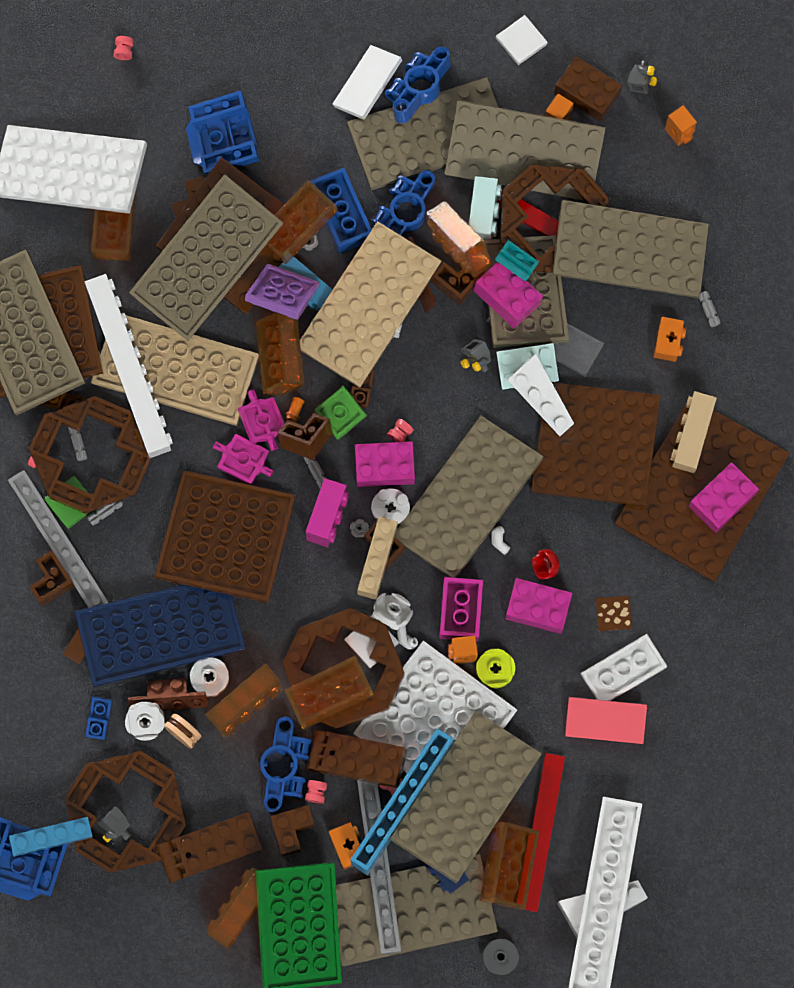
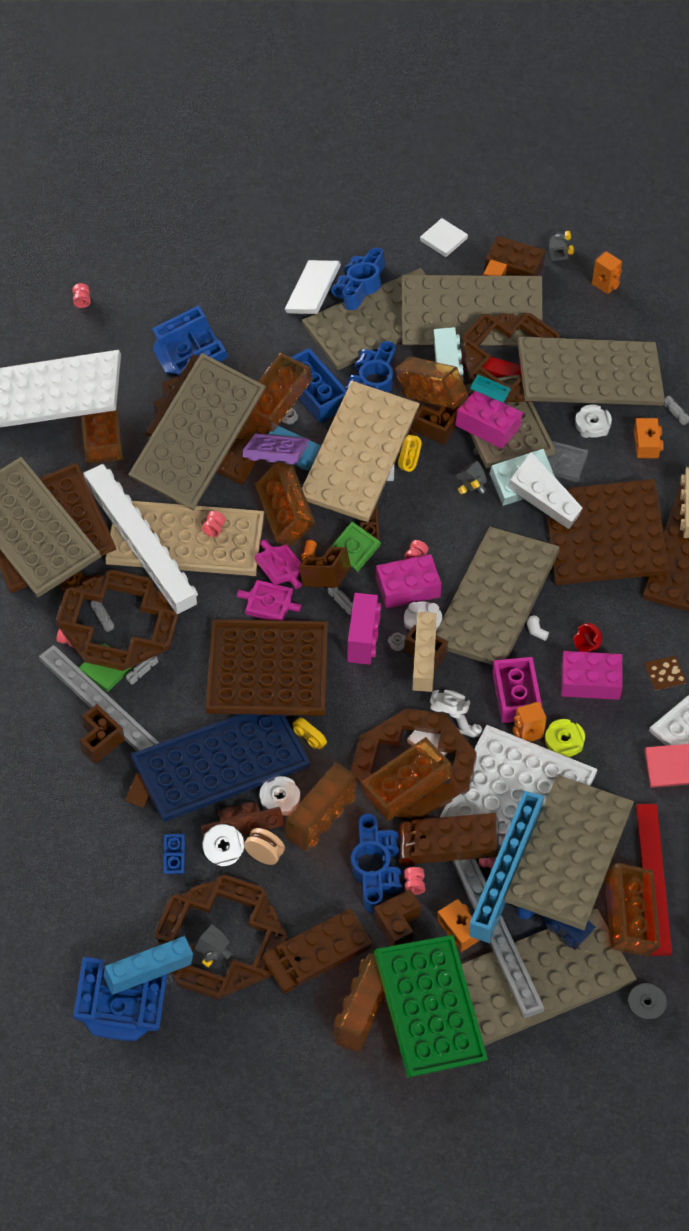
camera: 10 degrees left, 20 degrees down
(204, 363) = (214, 522): none -> coral wheel
(255, 623) = (310, 733): none -> yellow plate
(420, 313) = (409, 453): none -> yellow plate
(622, 317) = (590, 429): none -> white plate

